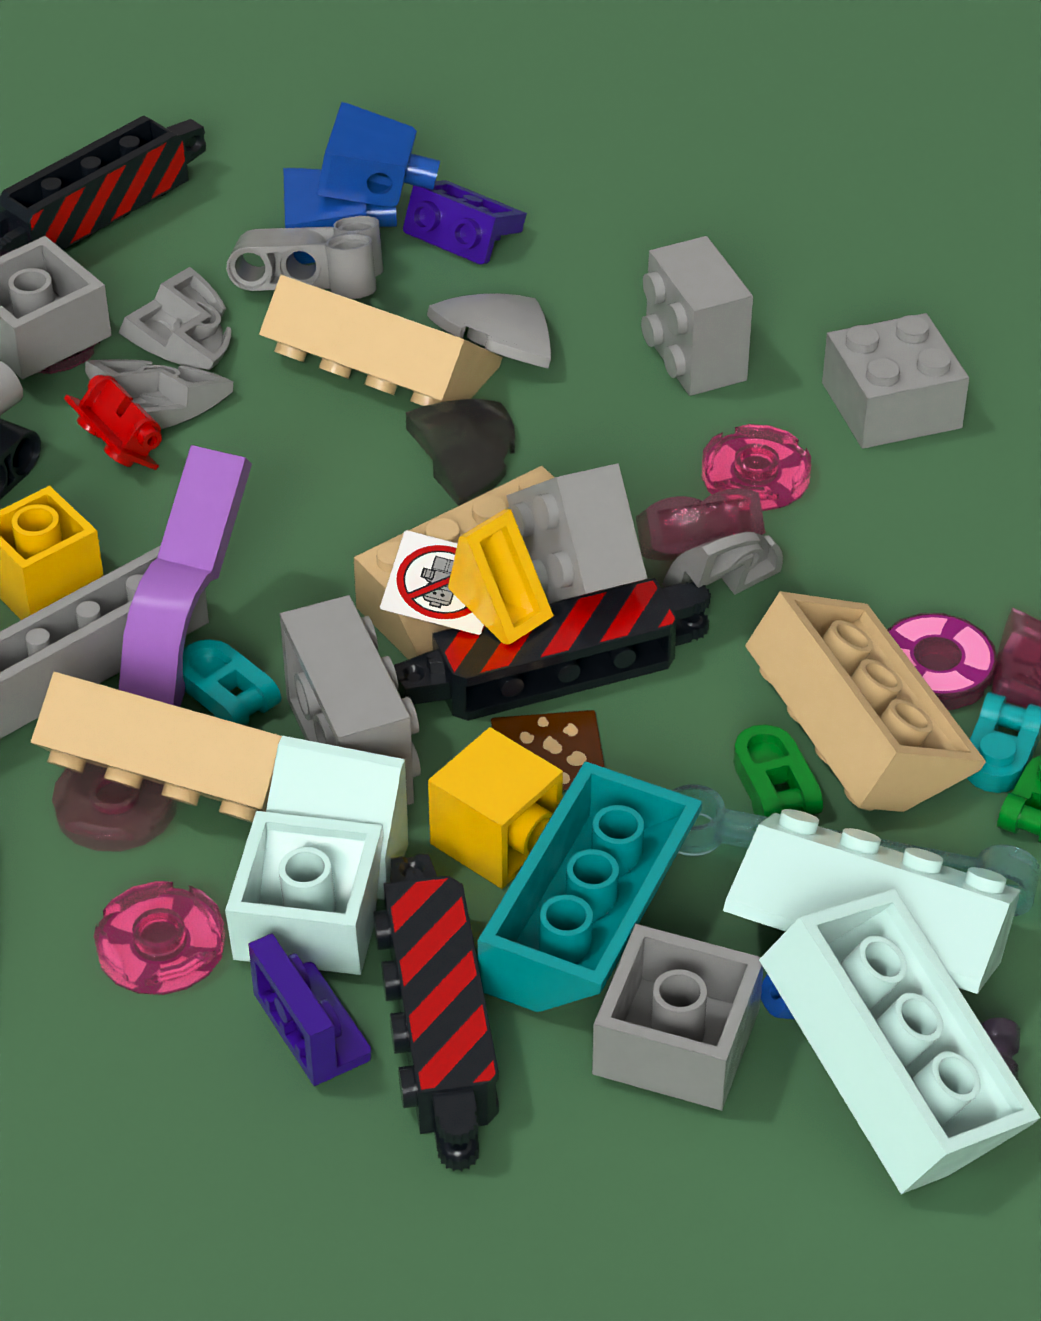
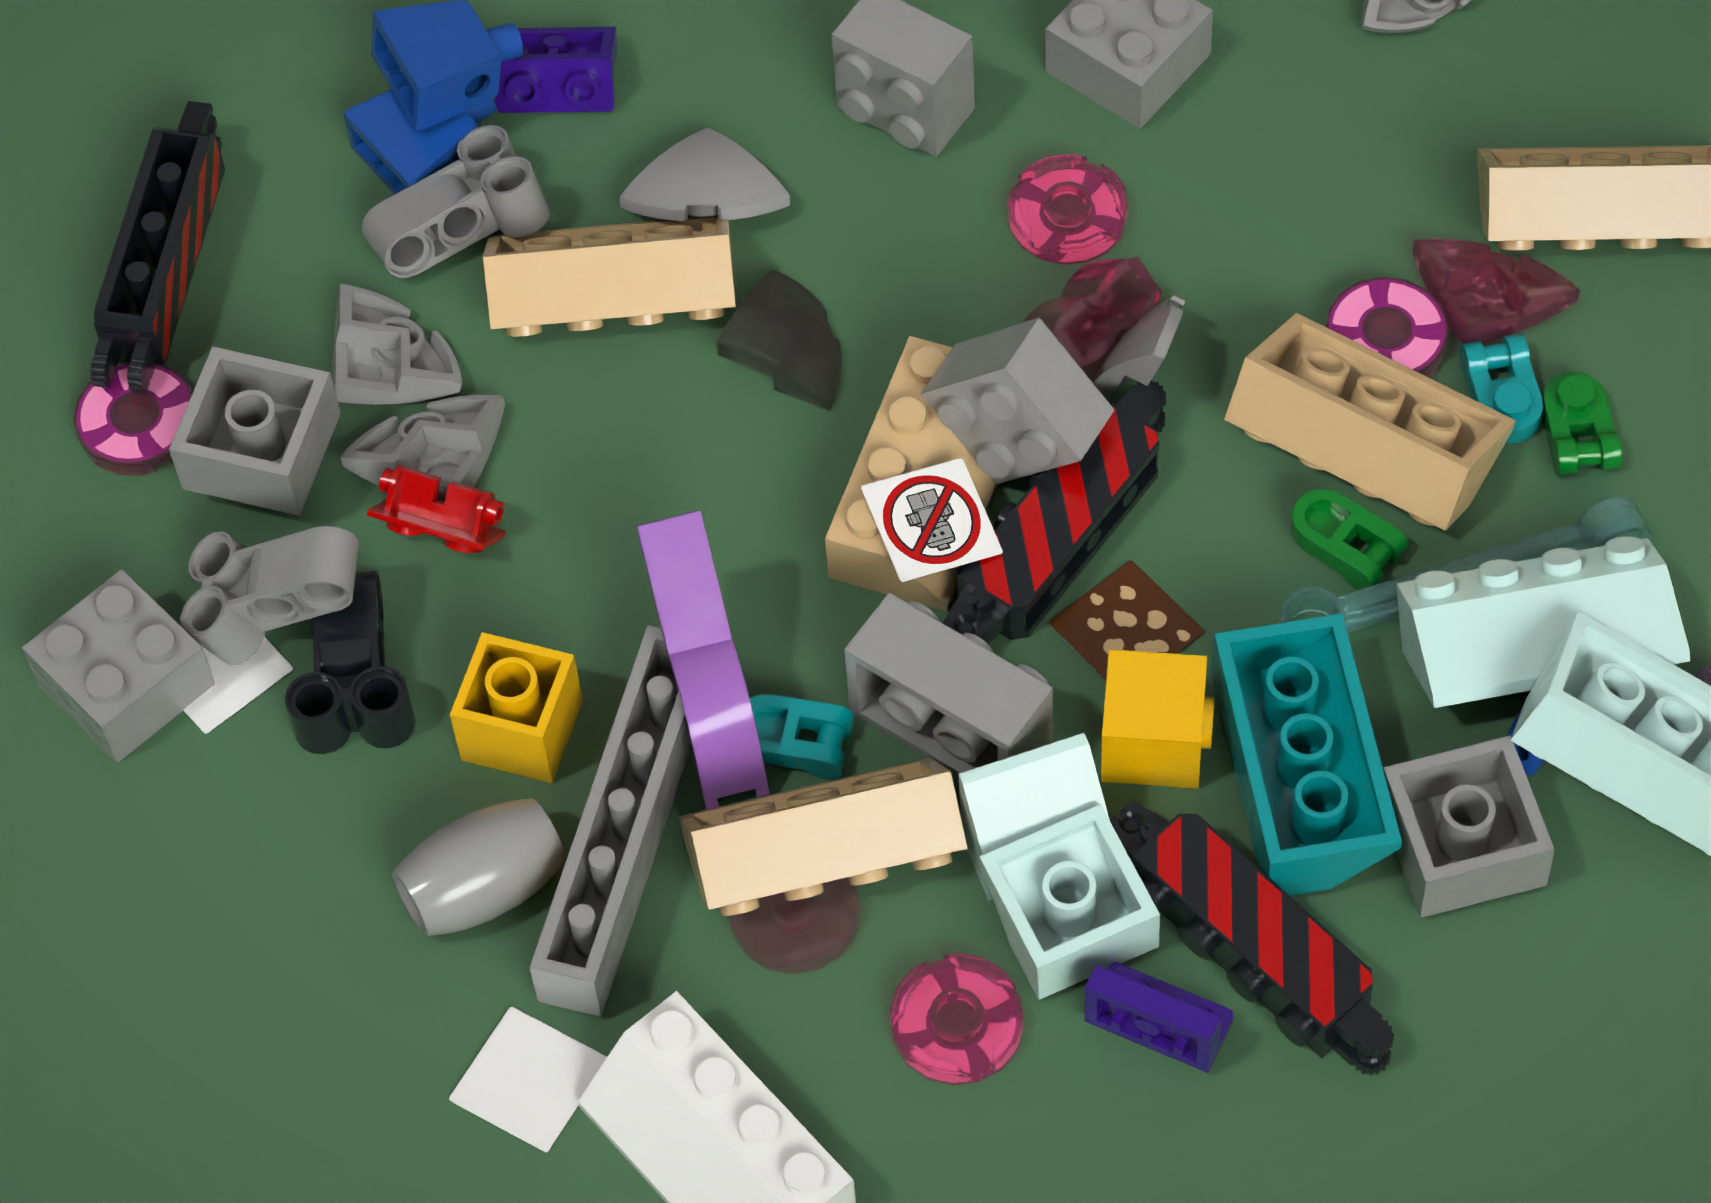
camera: 30 degrees left, 15 degrees up
(498, 579) = (998, 494): yellow slope -> none

